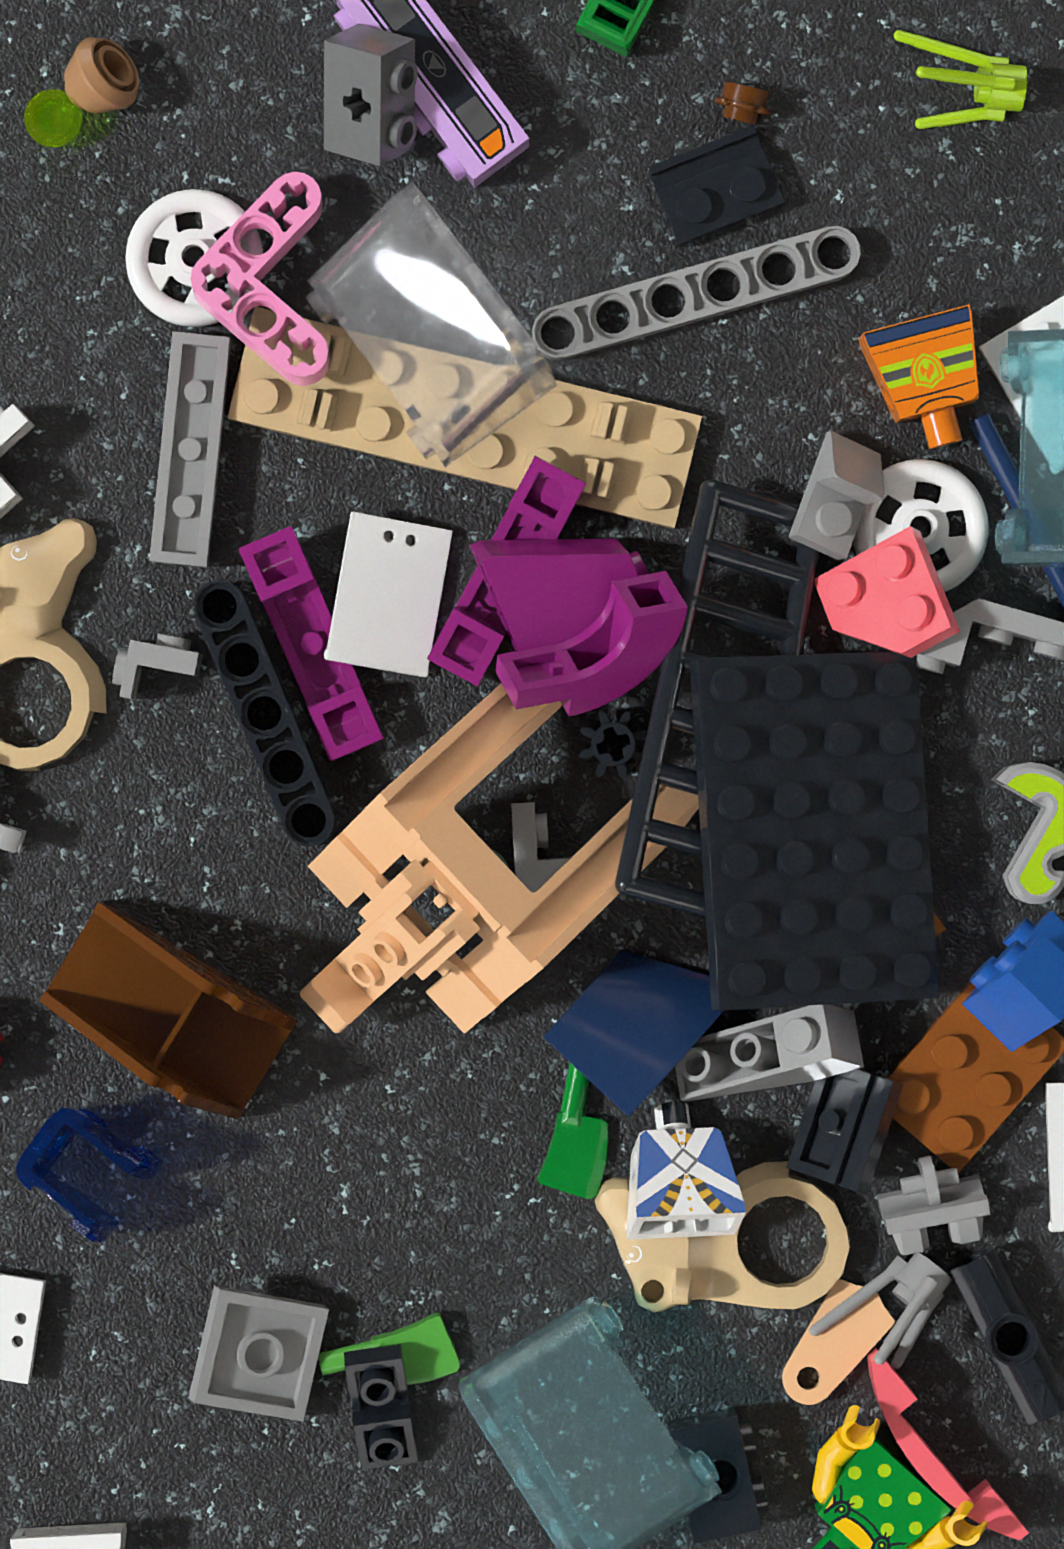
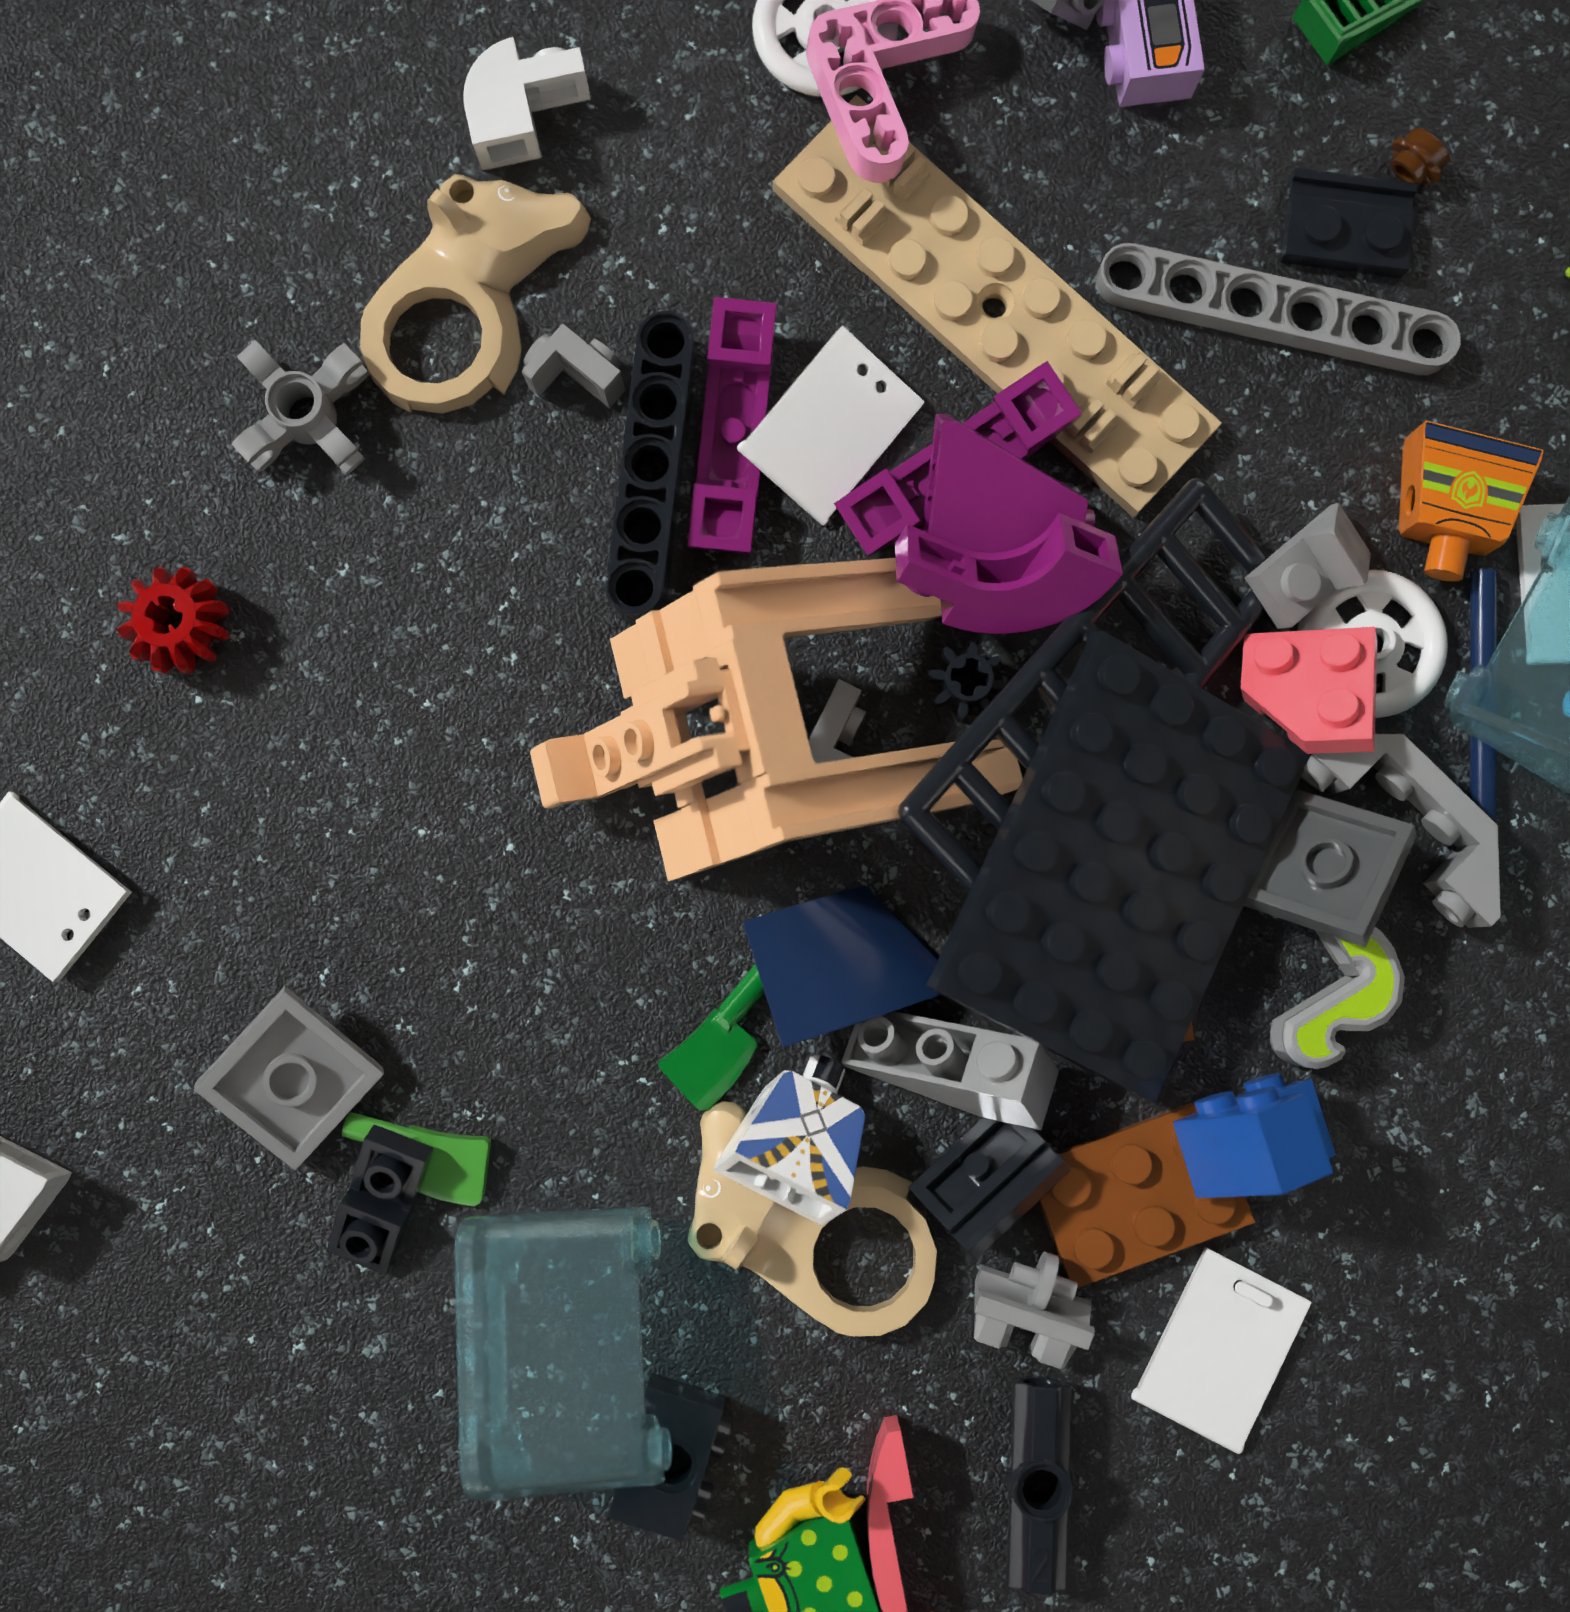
camera: 25 degrees right, 5 degrees down
(50, 1142) = (206, 761): clear blue piece -> none
(167, 1014) = (393, 703): reddish brown ladder -> none
(190, 449) = (721, 191): light grey plate -> none
(431, 327) = (1020, 189): clear windscreen -> none
(838, 1347) = (862, 1388): light nougat piece -> none
(918, 1287) = (973, 1381): light grey plant -> none
(978, 734) = (1331, 867): none -> dark grey hinge

